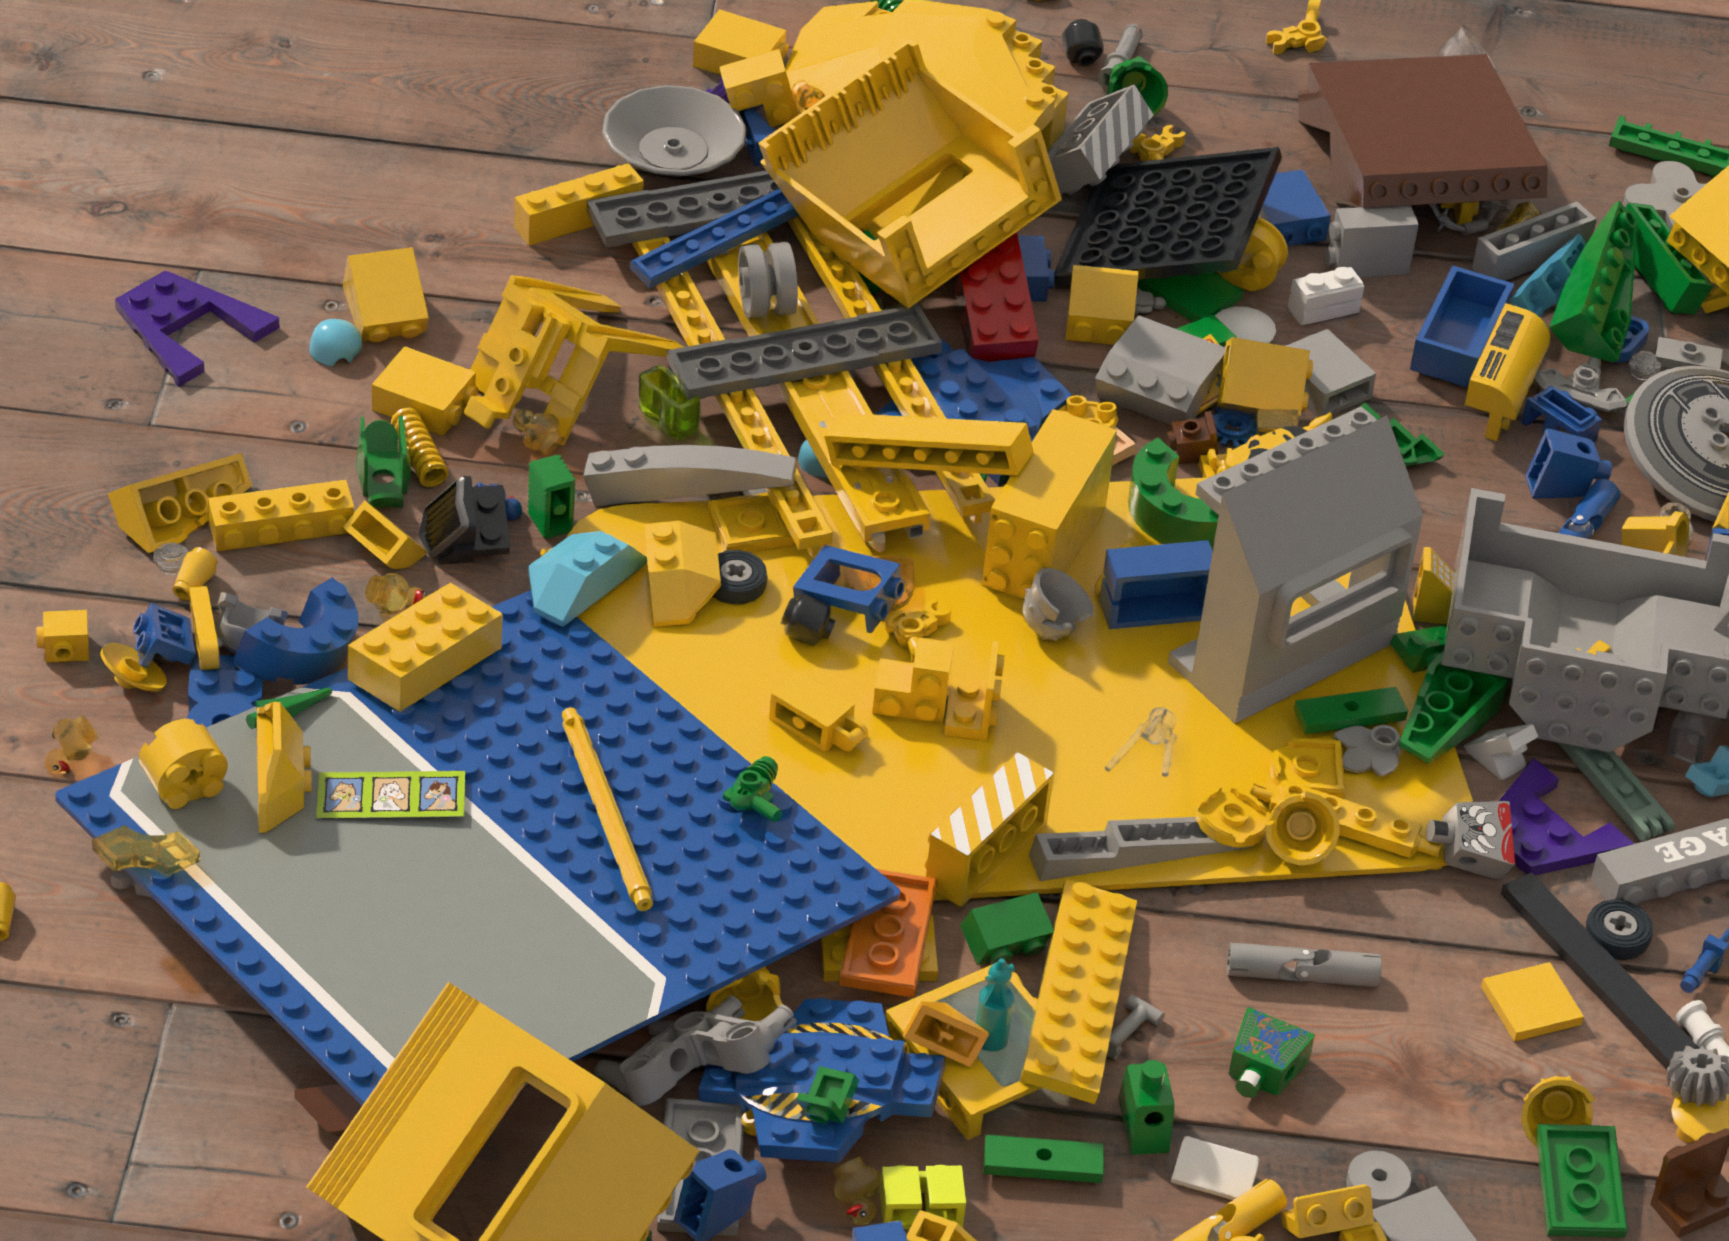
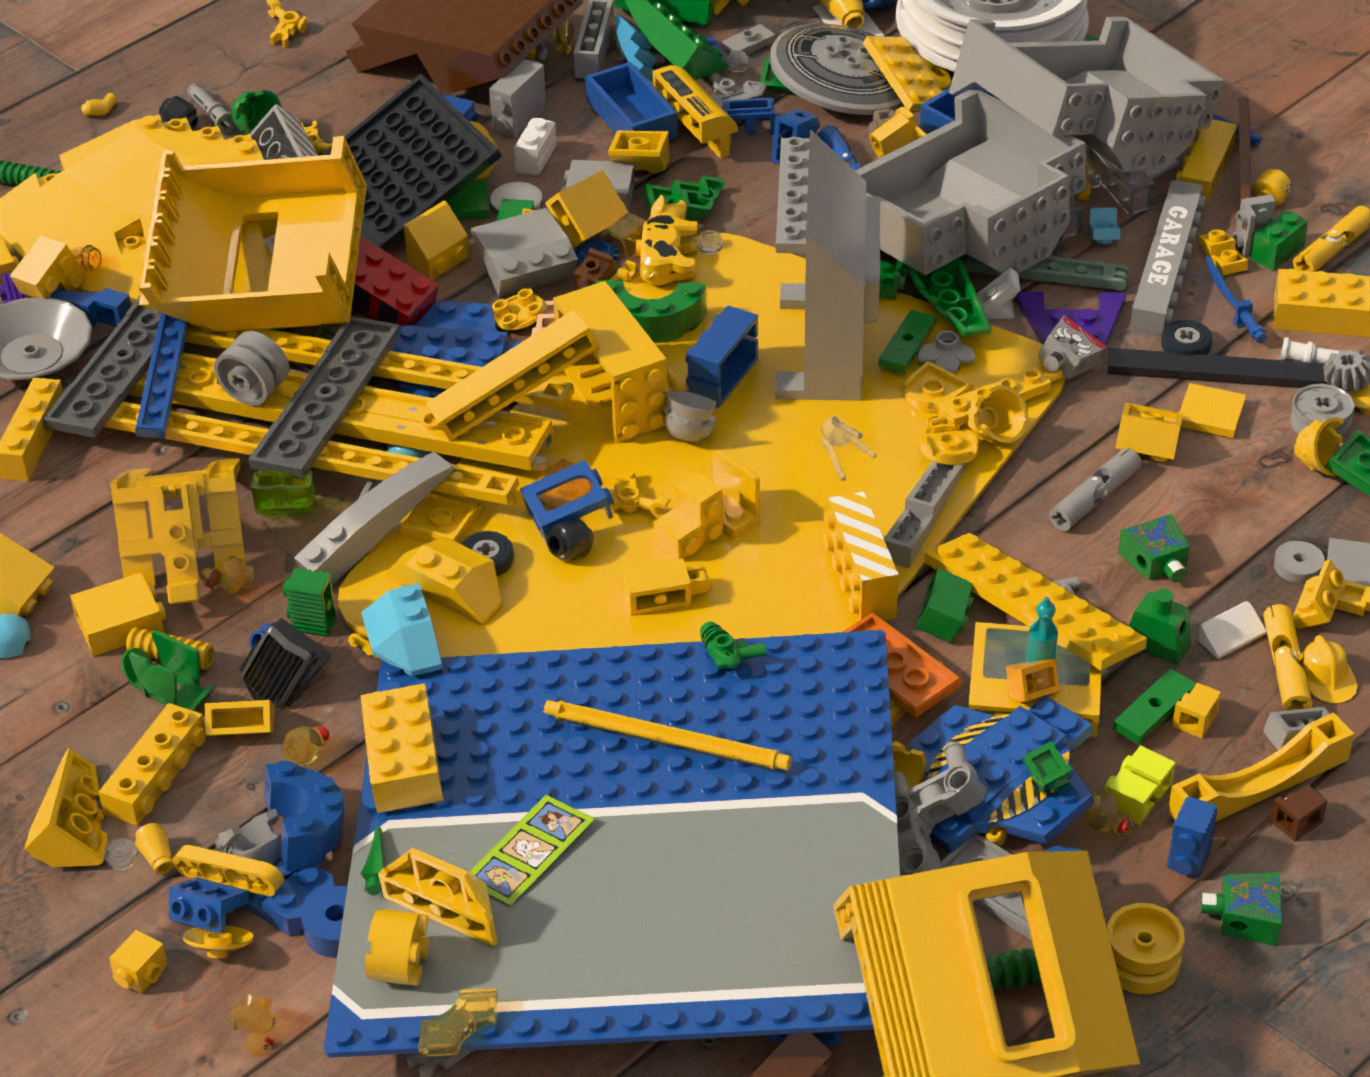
camera: 45 degrees left, 0 degrees up
(1071, 1194) = (1197, 710): none -> yellow brick
(1401, 367) = (645, 148): none -> yellow slope
(1432, 961) = (1149, 431): none -> yellow slope
(1625, 1089) = (1319, 404): none -> light grey wheel

